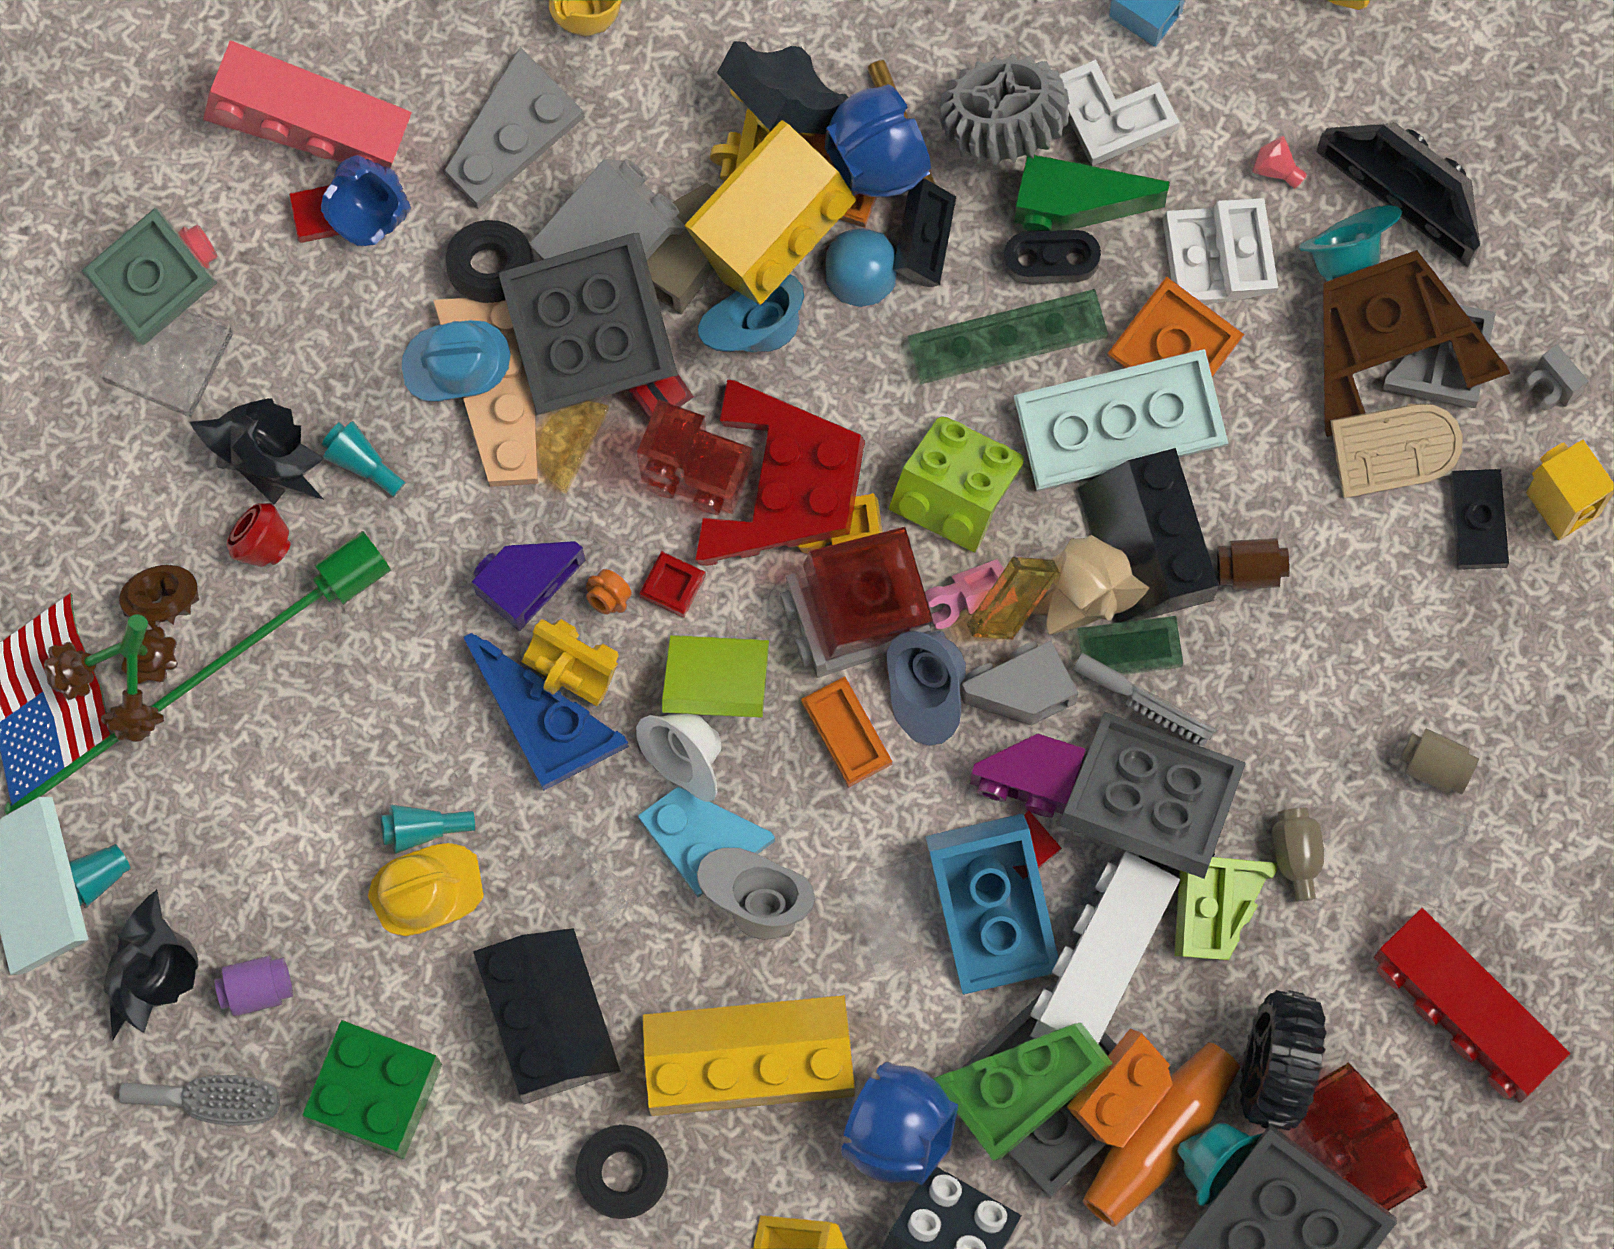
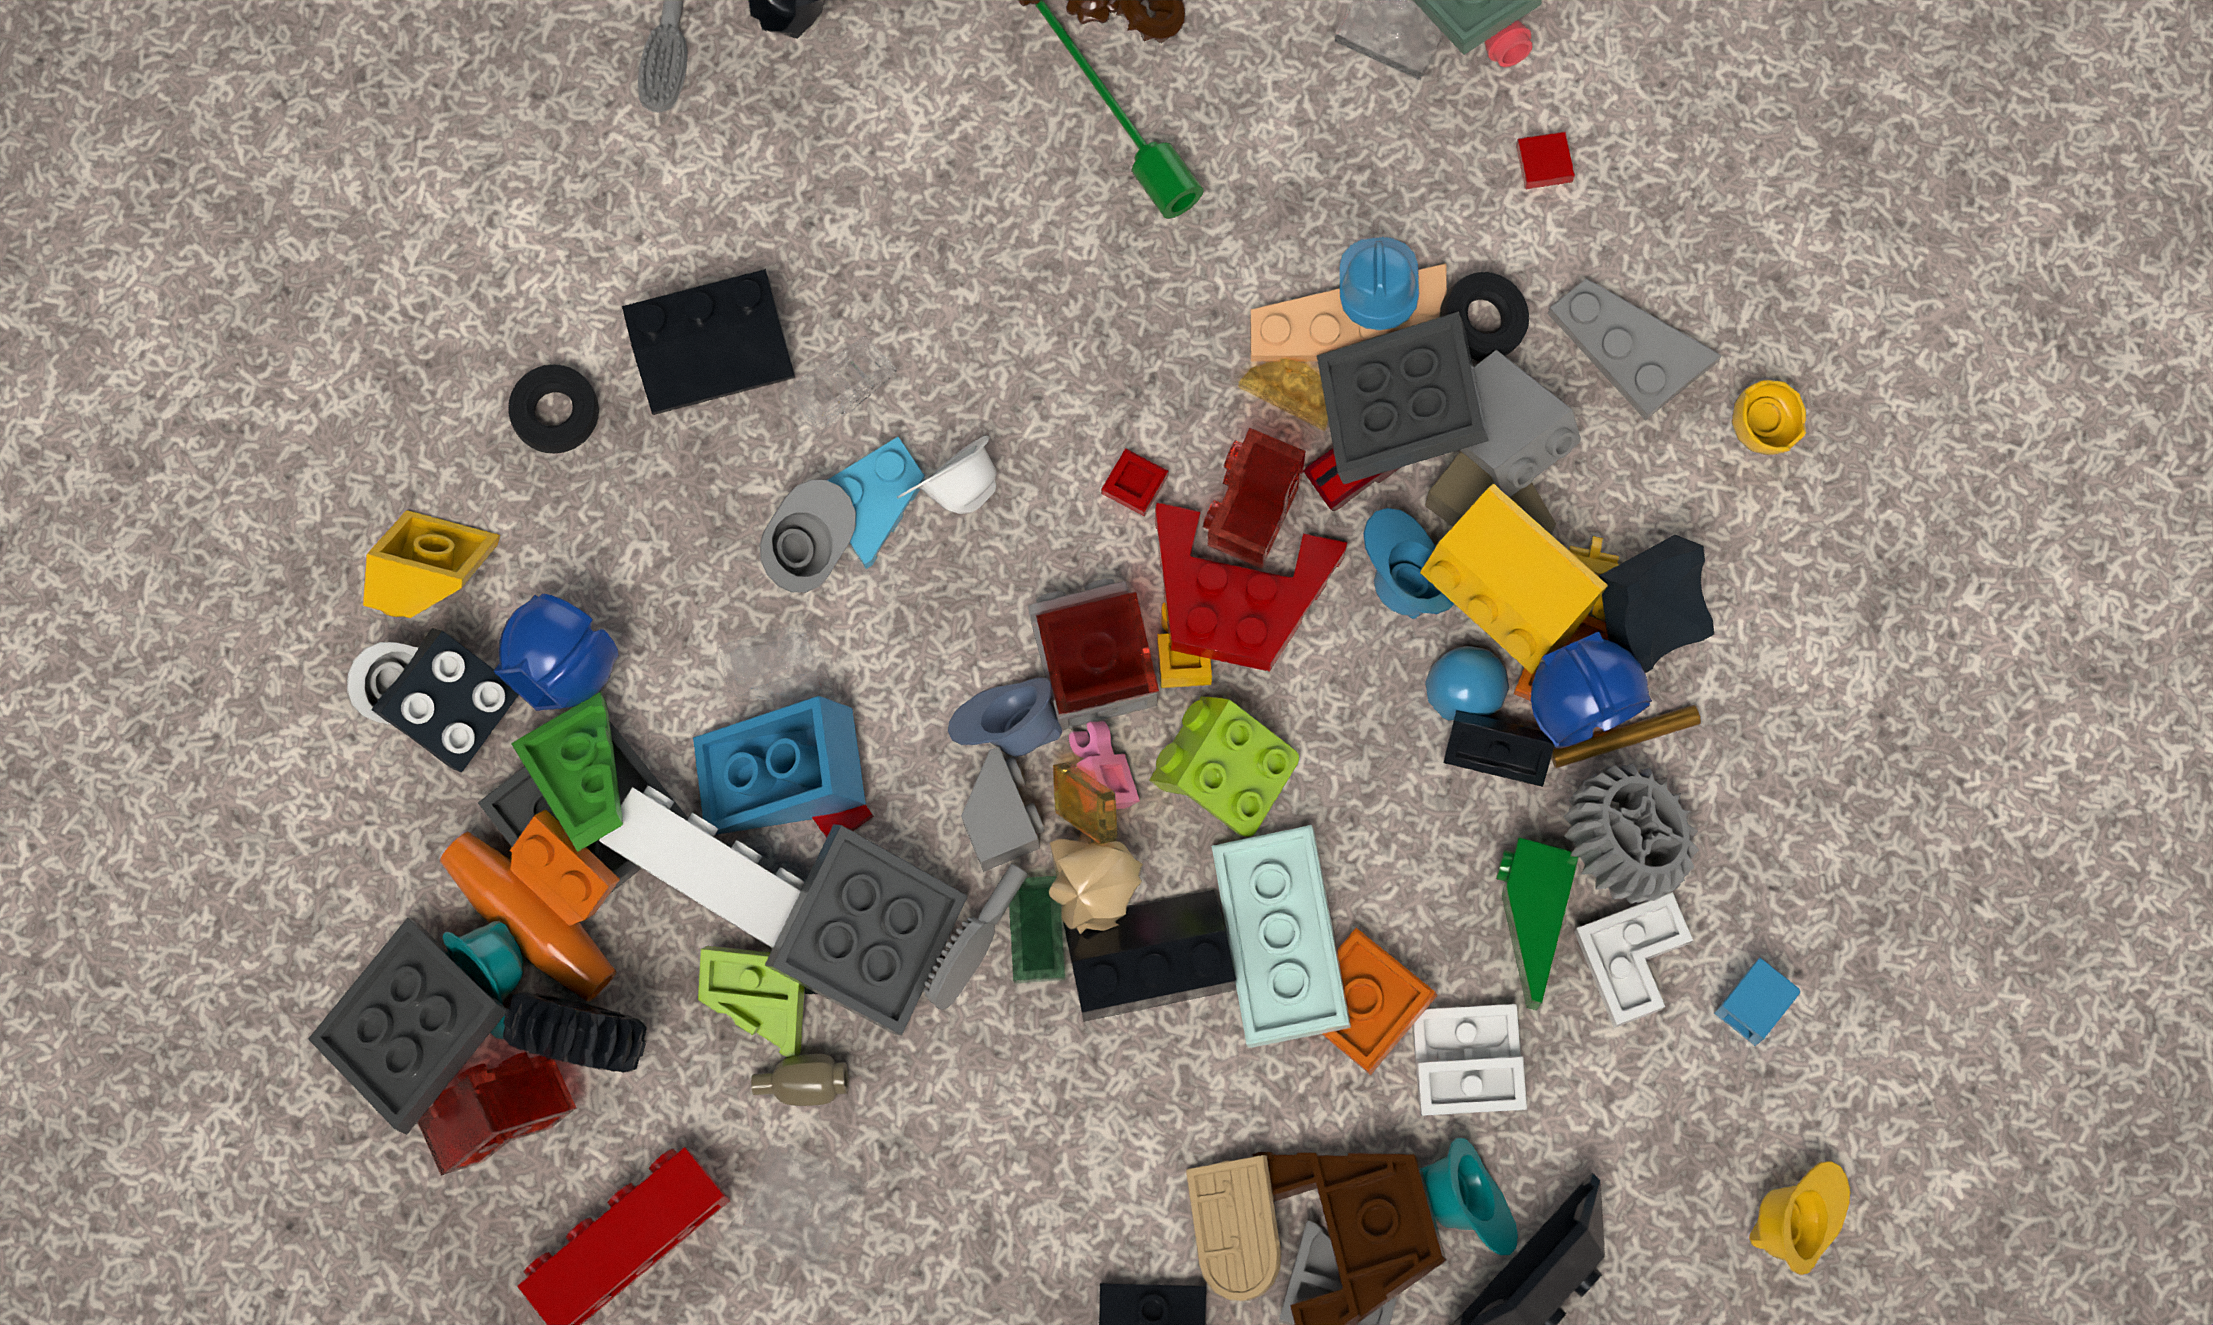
camera: 95 degrees right, 0 degrees up
(254, 985) = (762, 85): medium lavender brick -> none
(259, 536) = (1203, 96): red cone -> none
(262, 446) = (1294, 96): black hair -> none
(302, 109) = (1648, 141): coral wedge -> none
(353, 452) = (1288, 185): teal cone -> none
(364, 201) = (1549, 196): blue hair -> none
(372, 1089) = (650, 184): green brick -> none
(411, 826) = (904, 229): teal cone -> none
(426, 889) = (846, 245): yellow piece -> none
(525, 577) = (1143, 337): dark purple slope -> none
(551, 730) = (995, 356): blue wing -> none
(570, 662) = (1049, 374): yellow hips -> none
(608, 592) = (1126, 416): orange plate -> none
(715, 676) = (1028, 511): lime tile -> none
(747, 1055) = (649, 526): yellow slope -> none
(846, 731) = (969, 641): orange tile -> none
(1007, 336) = (1384, 830): clear green tile -> none
(1032, 771) = (907, 816): magenta slope -> none
(1051, 254) = (1469, 880): black plate -> none
(1252, 564) = (1114, 1060): reddish brown brick -> none
(1277, 162) = (1570, 1130): coral rock -> none
(1439, 761) = (885, 1236): dark tan brick -> none

